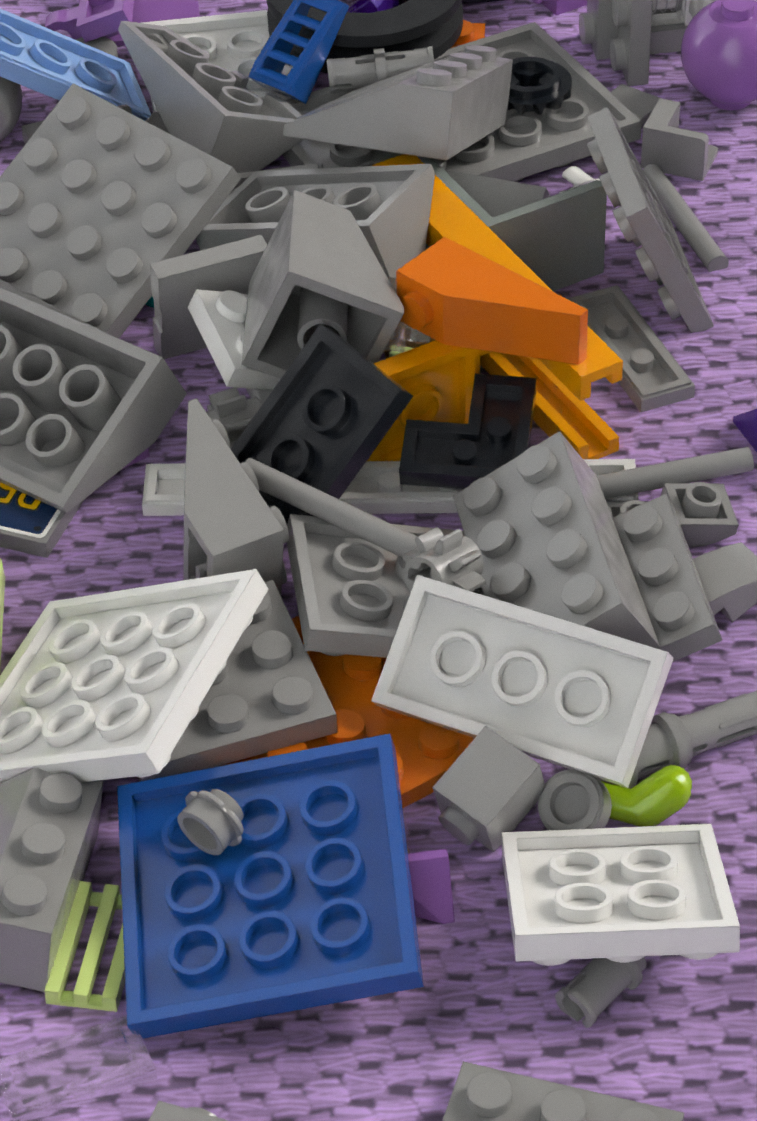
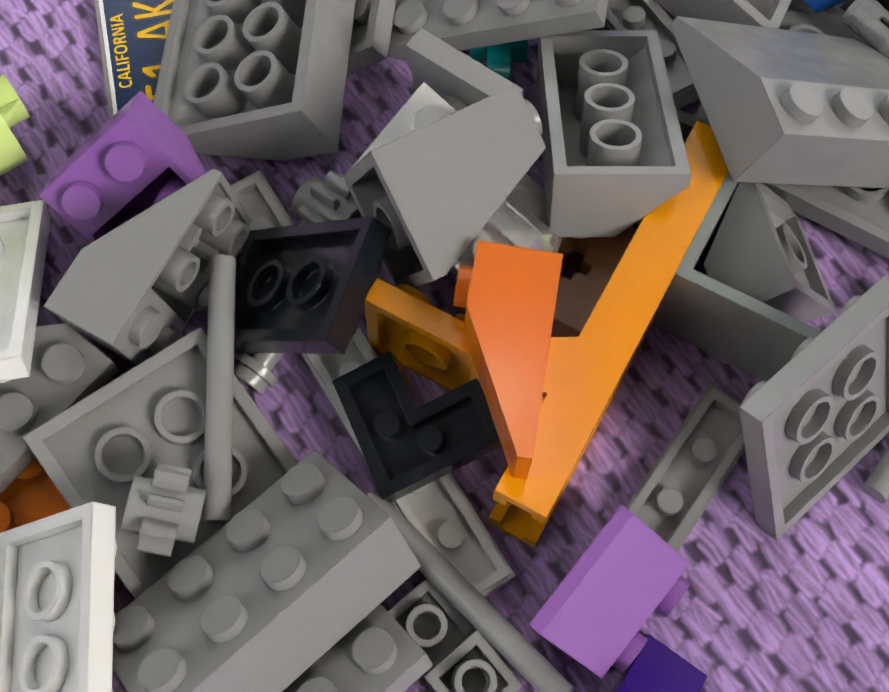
camera: 55 degrees right, 25 degrees up
(107, 515) = (122, 169): none -> medium lavender slope
(688, 388) = (612, 594): none -> medium lavender slope

